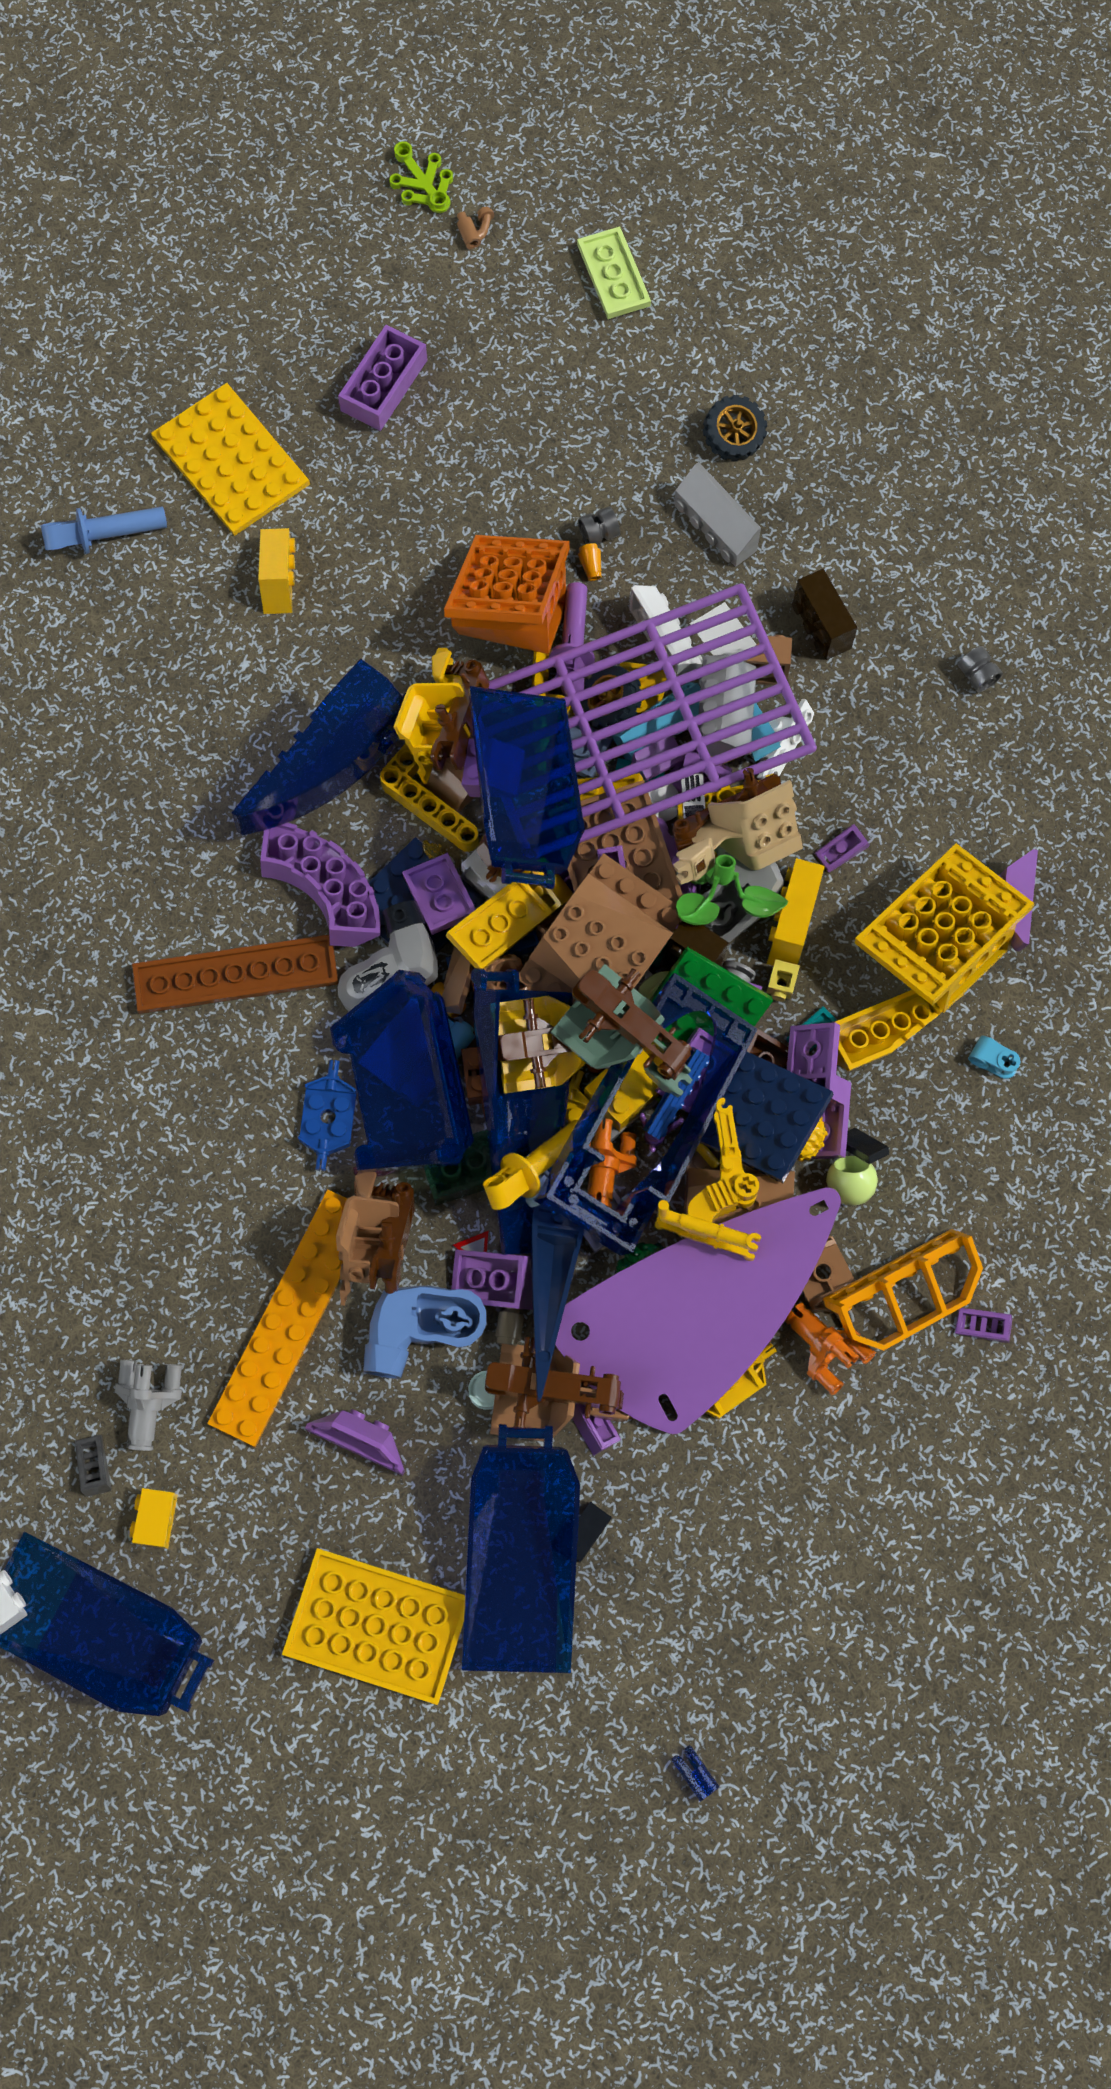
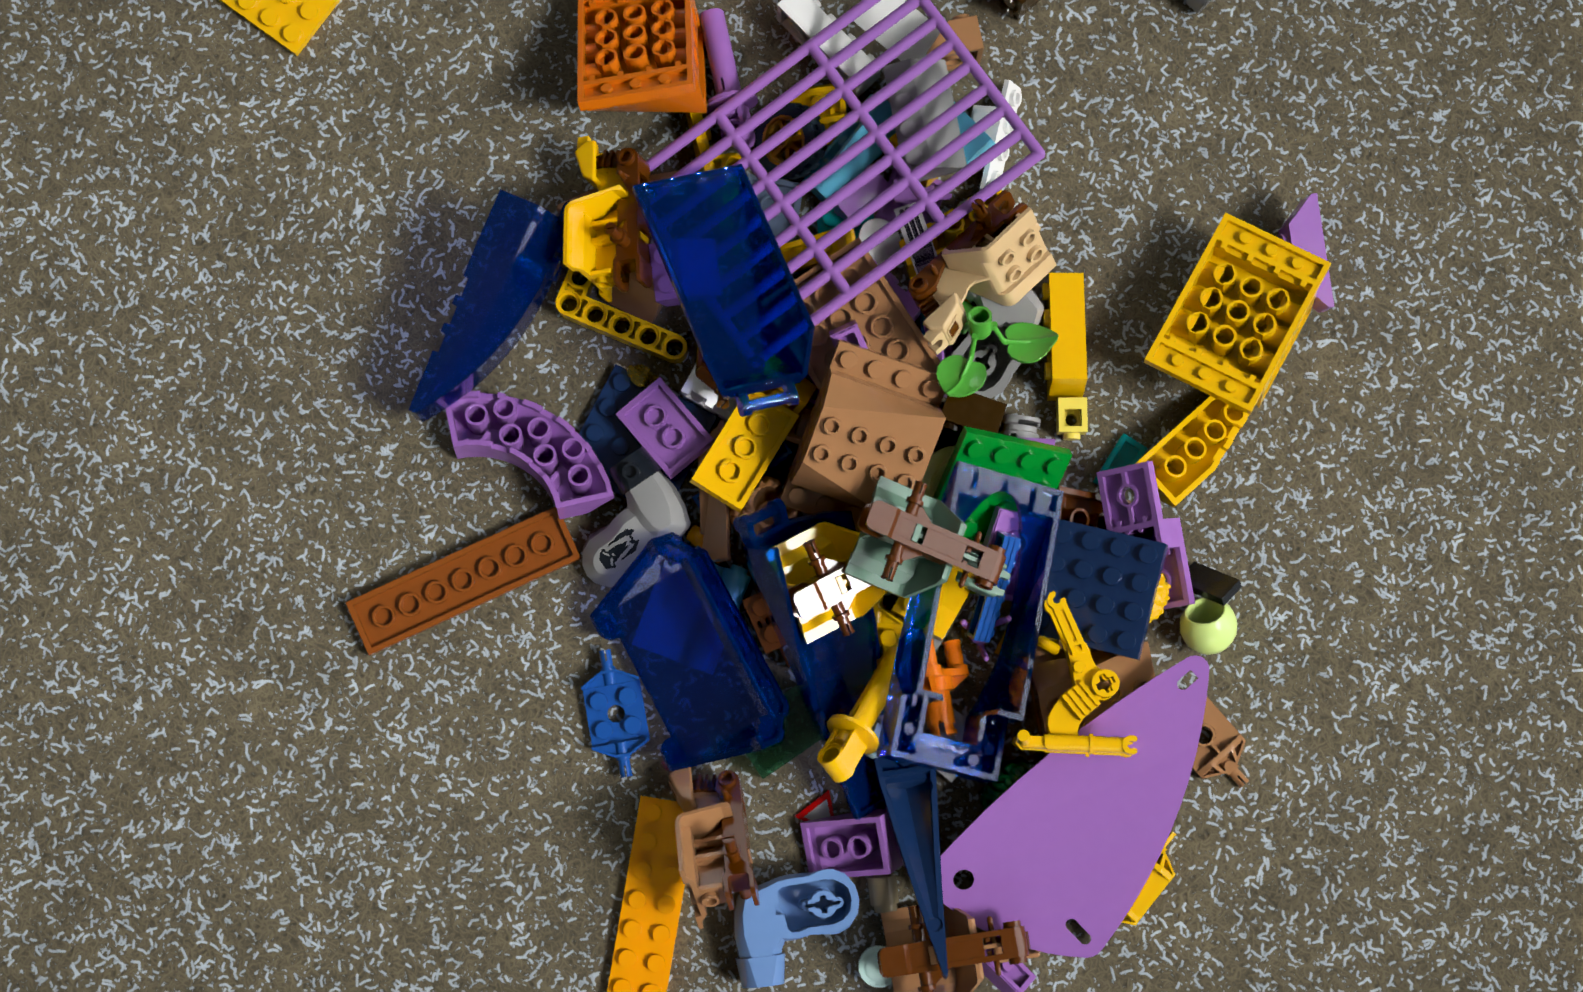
camera: 15 degrees left, 10 degrees up
(84, 530) = (121, 104): medium blue piece -> none
(276, 570) = (360, 87): yellow wedge -> none
(825, 1346) = (1230, 813): orange wheel -> none
(842, 848) = (1095, 242): medium lavender slope -> none
(904, 1267) = (1283, 711): light orange plate -> none
(985, 1315) = (1413, 735): medium lavender slope -> none
(992, 1056) = (1321, 438): medium azure piece -> none

